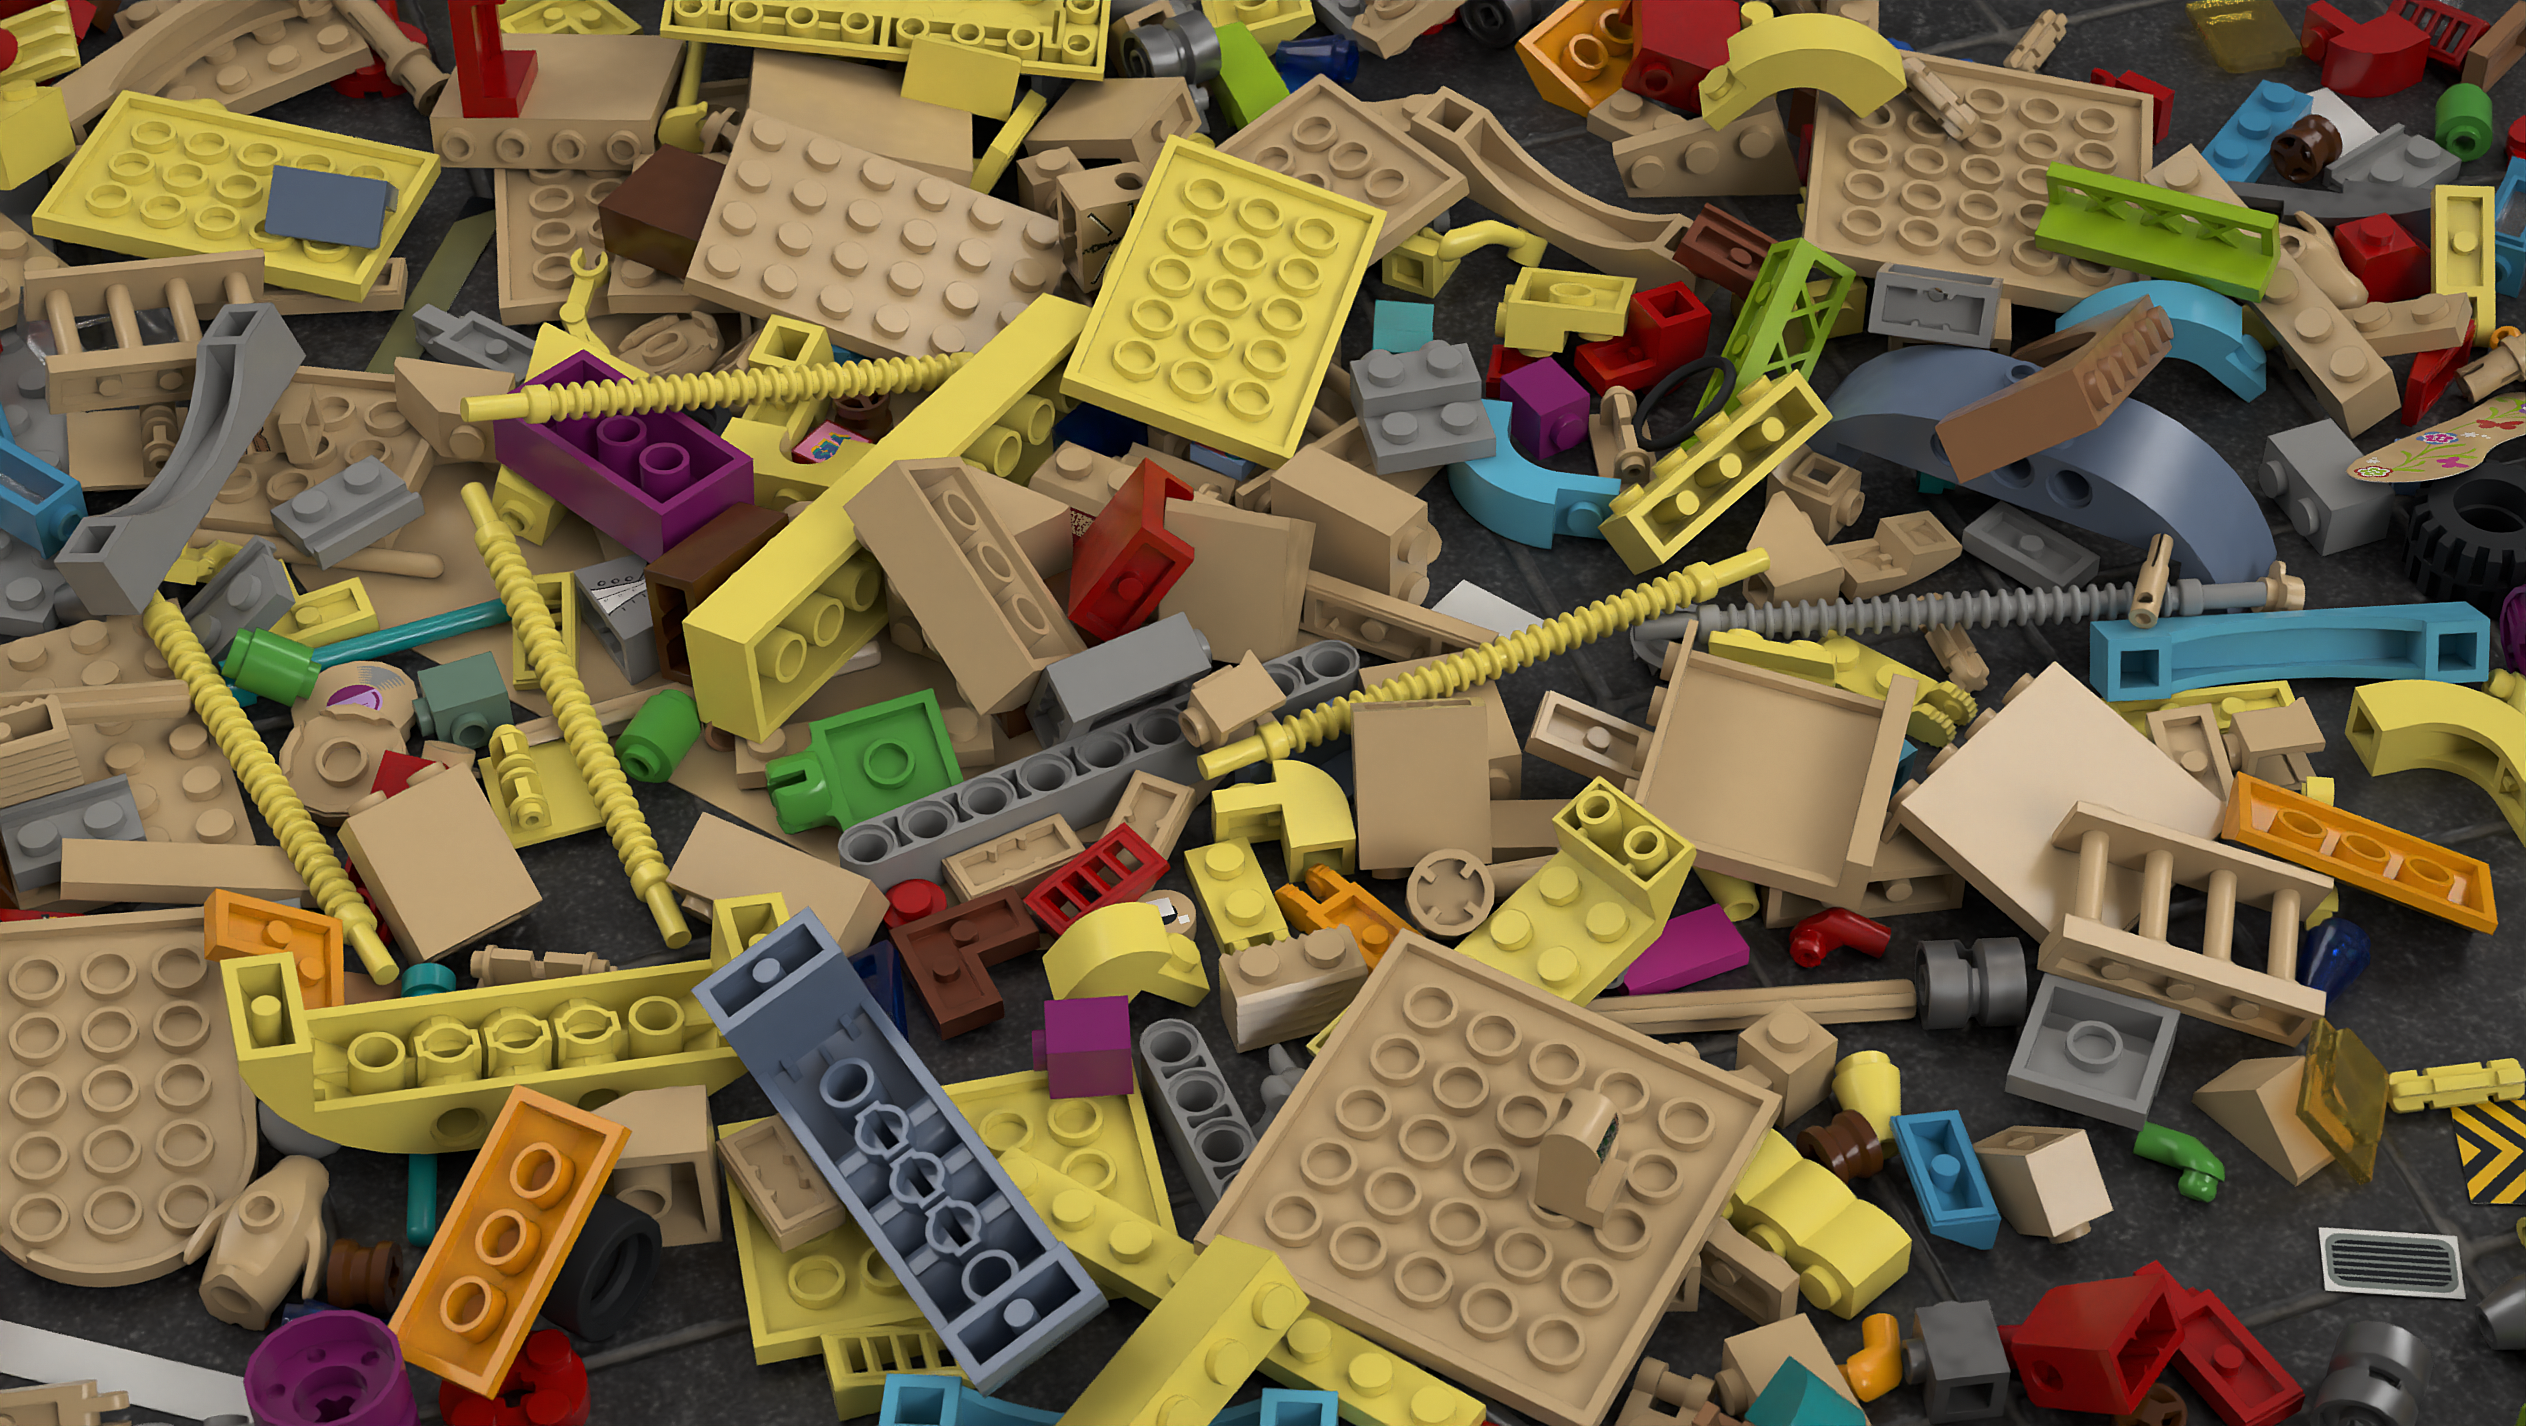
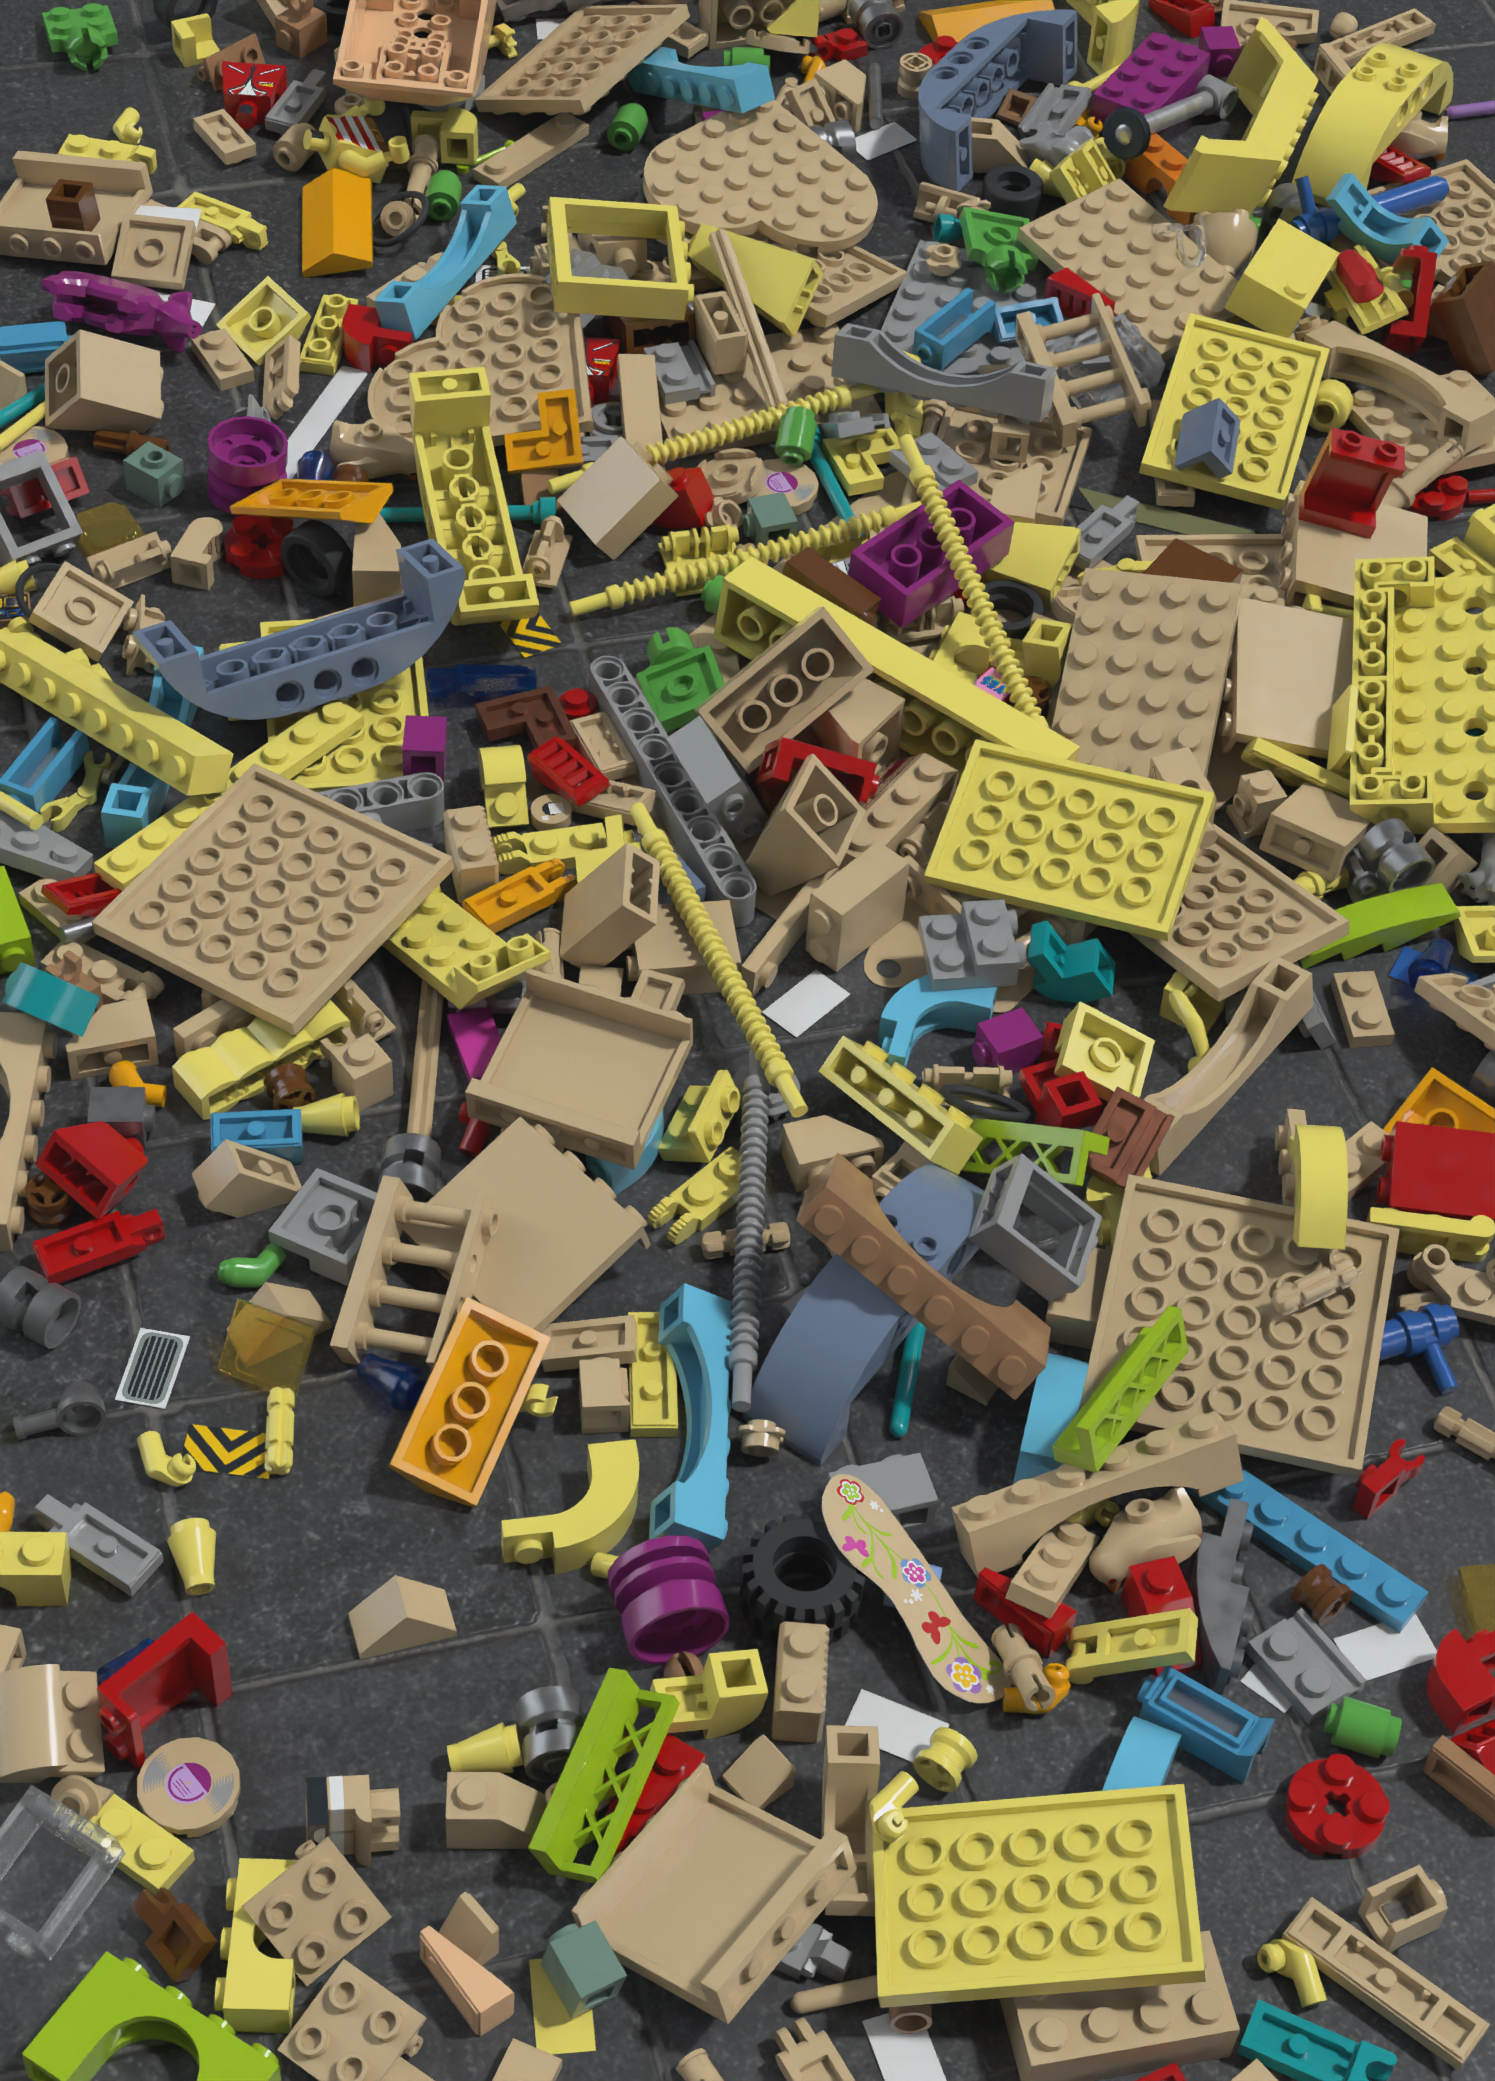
camera: 90 degrees right, 5 degrees up
(735, 862) = (592, 631): tan brick -> none
(1230, 704) = (680, 819): tan window -> none
(1449, 894) = (519, 912): tan piece -> none
(1575, 1159) = (243, 903): tan leg -> none
(2151, 583) = (738, 1320): tan piece -> none

